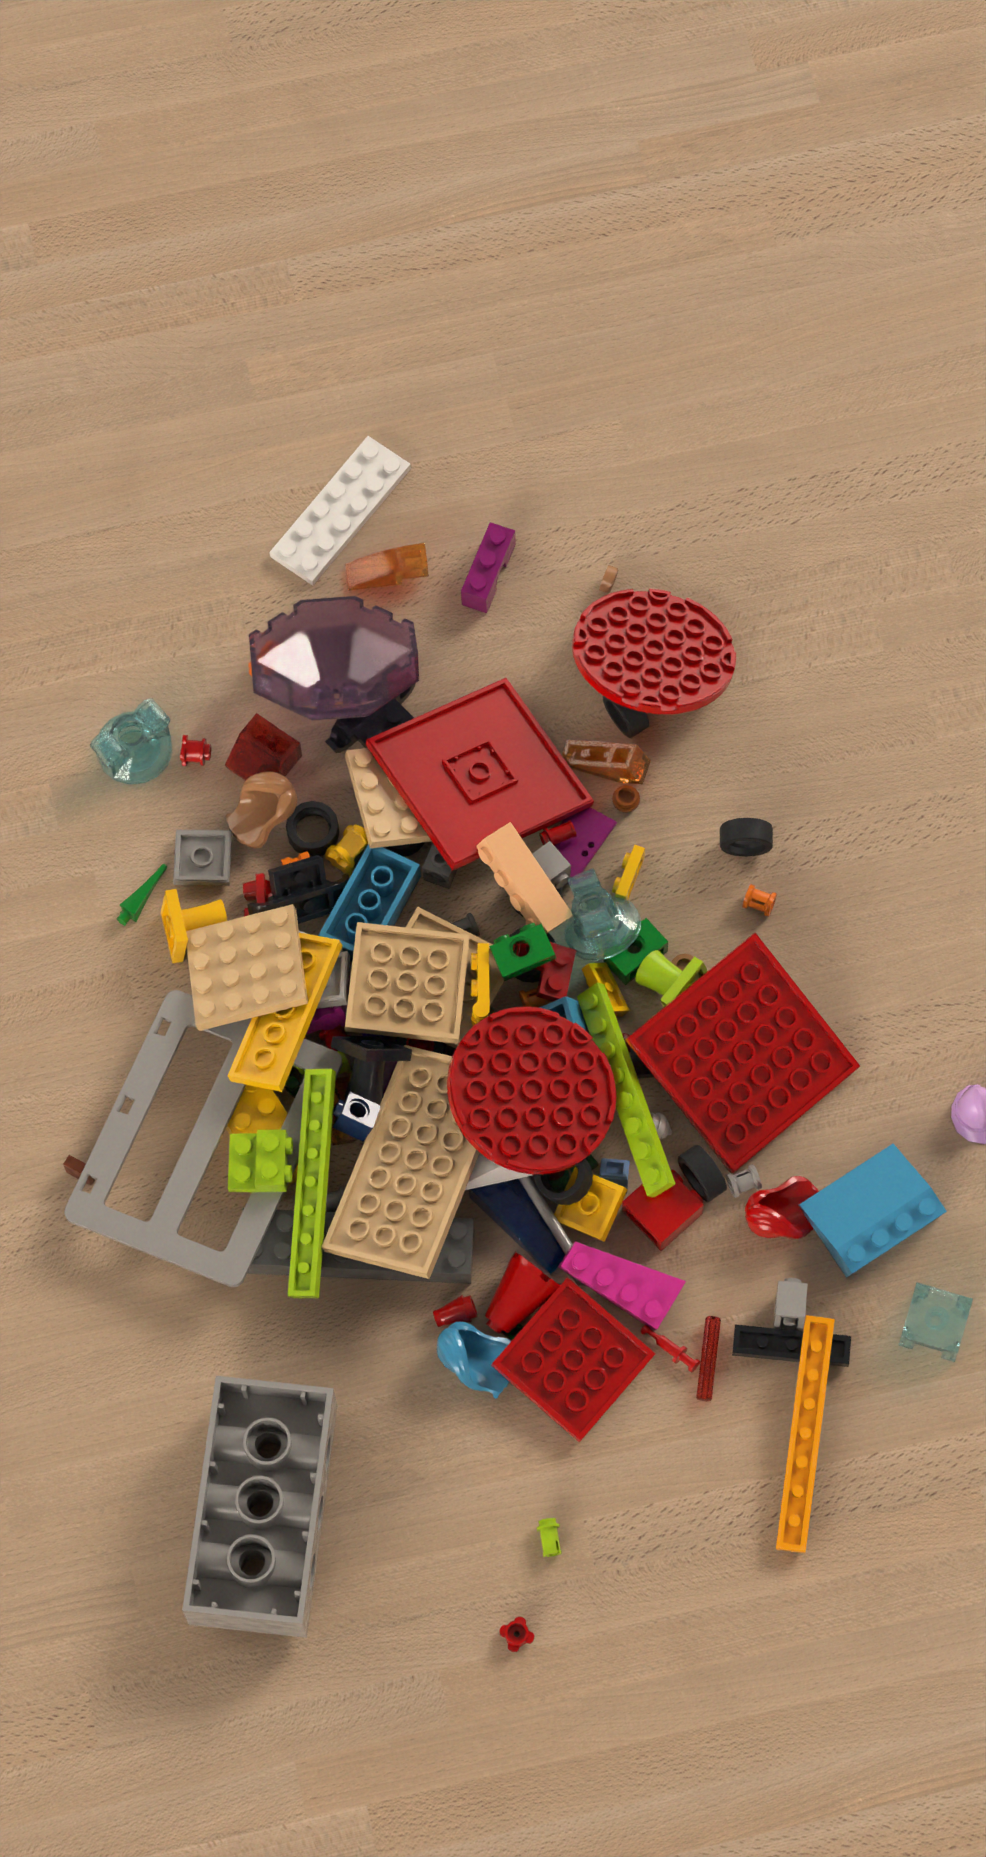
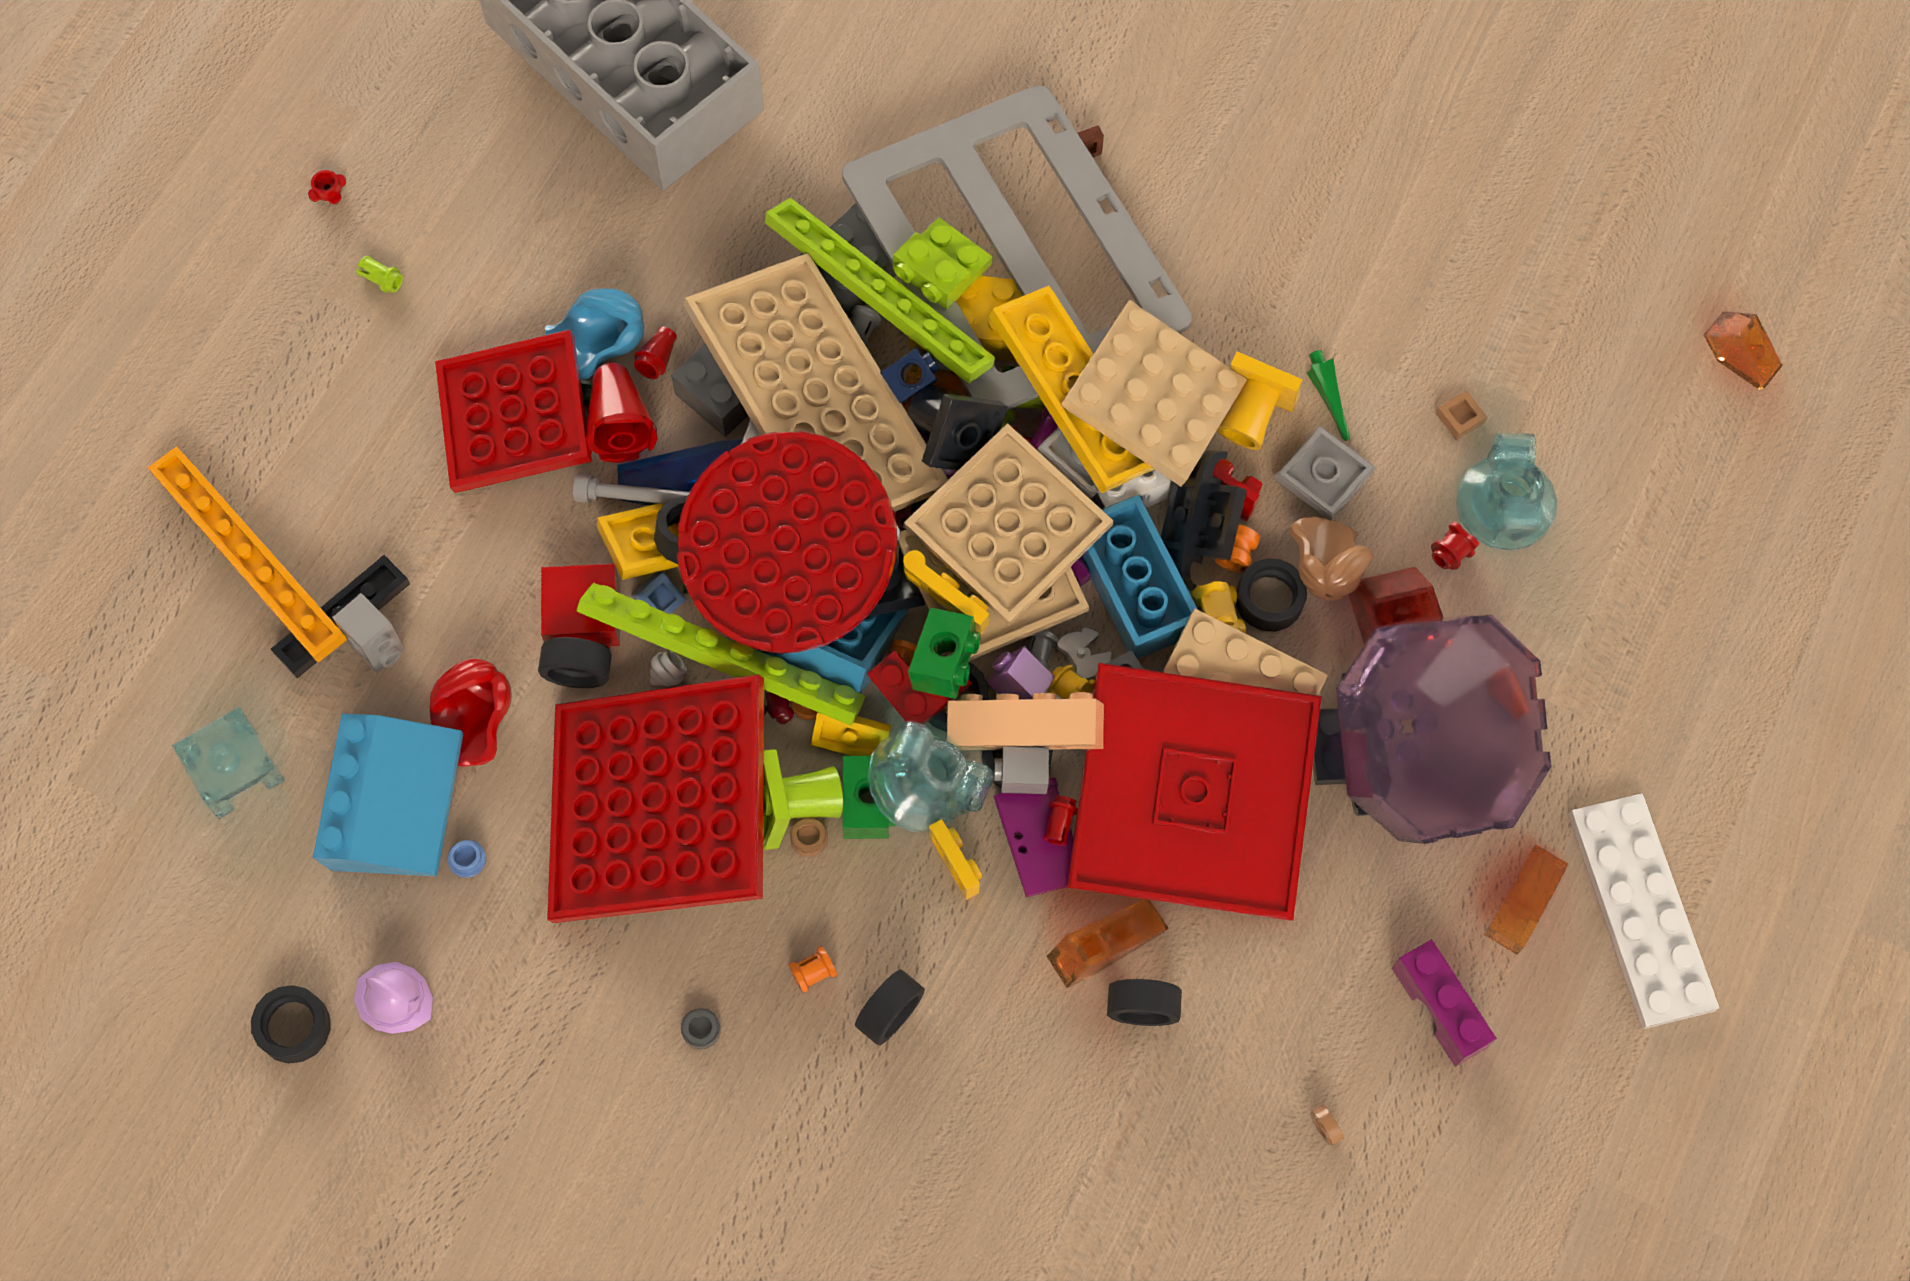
camera: 125 degrees right, 0 degrees up
(93, 811) = (1461, 415): none -> medium nougat tile
(444, 900) = (1075, 647): none -> white piece
(469, 893) = (1068, 682): none -> yellow brick
(490, 918) = (1019, 674): none -> medium lavender brick
(626, 798) = (1046, 930): dark orange plate -> none
(628, 1285) = (539, 509): dark pink wing -> none
(653, 651) = (1188, 1087): red tile -> none
(678, 1353) = (443, 510): red piece -> none
(708, 1358) = (403, 535): clear red axle -> none
(744, 1181) = (536, 704): light grey bush -> none
(844, 935) = (700, 1028): none -> dark grey tile
(866, 1142) = (466, 858): none -> medium blue plate

